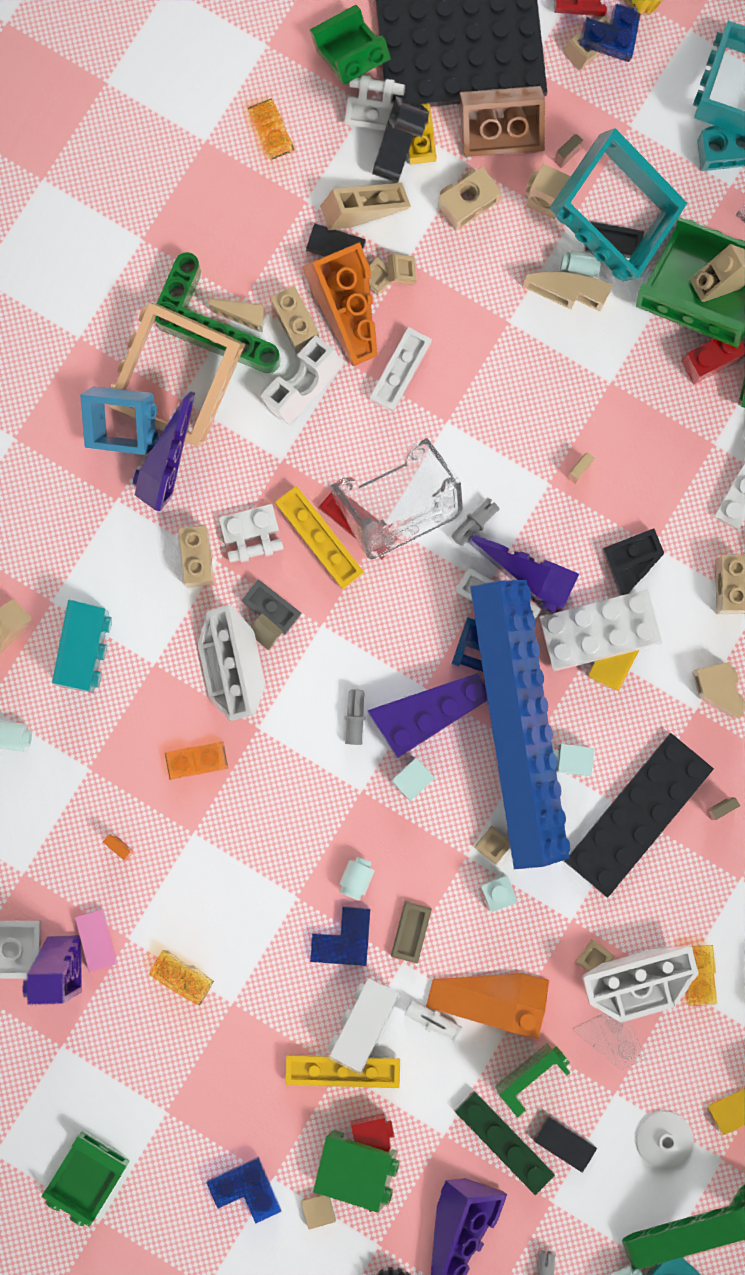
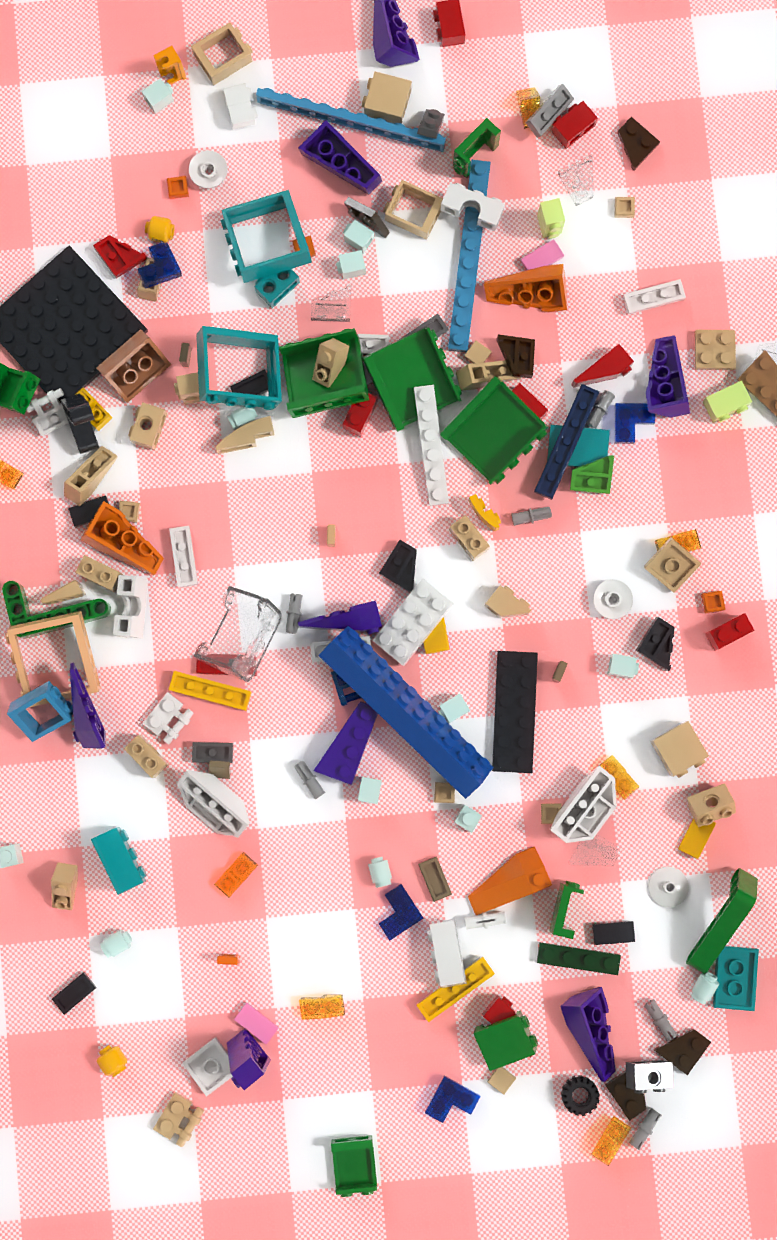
camera: 30 degrees left, 0 degrees up
(402, 269) = (140, 497): tan tile -> none

